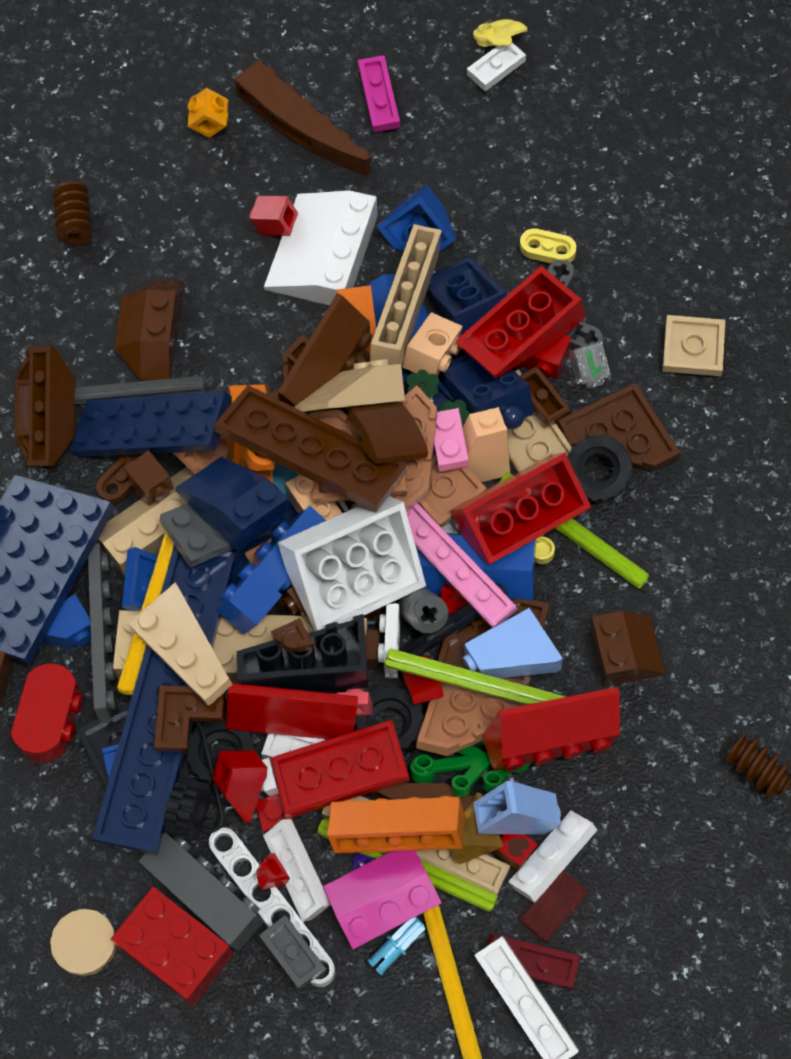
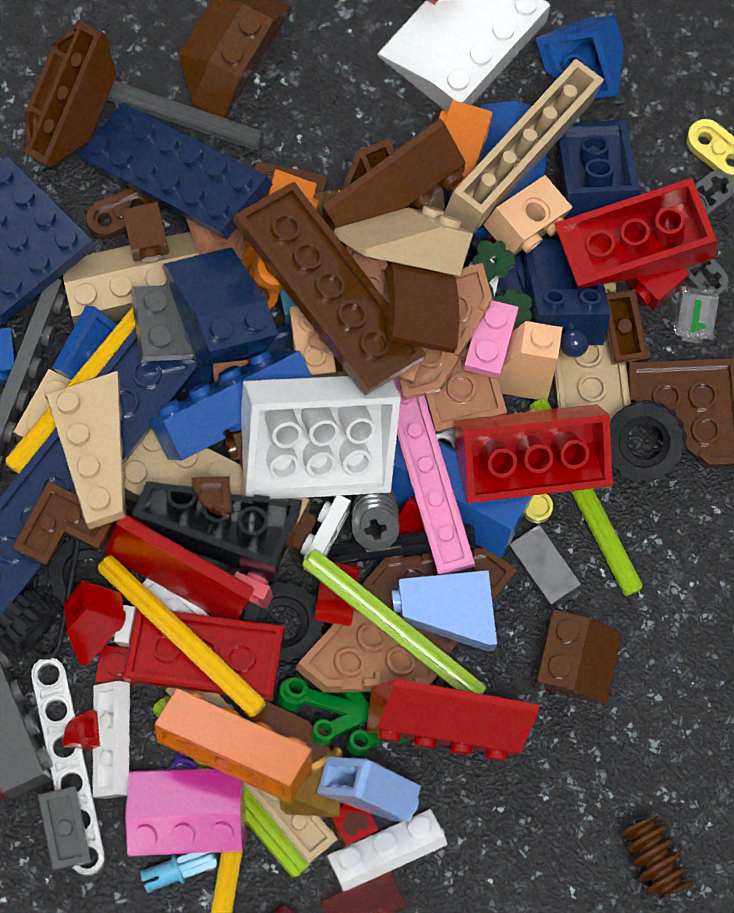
camera: 15 degrees right, 10 degrees up
(317, 761) = (181, 636): none -> yellow axle
(567, 593) = (544, 565): none -> flat silver tile

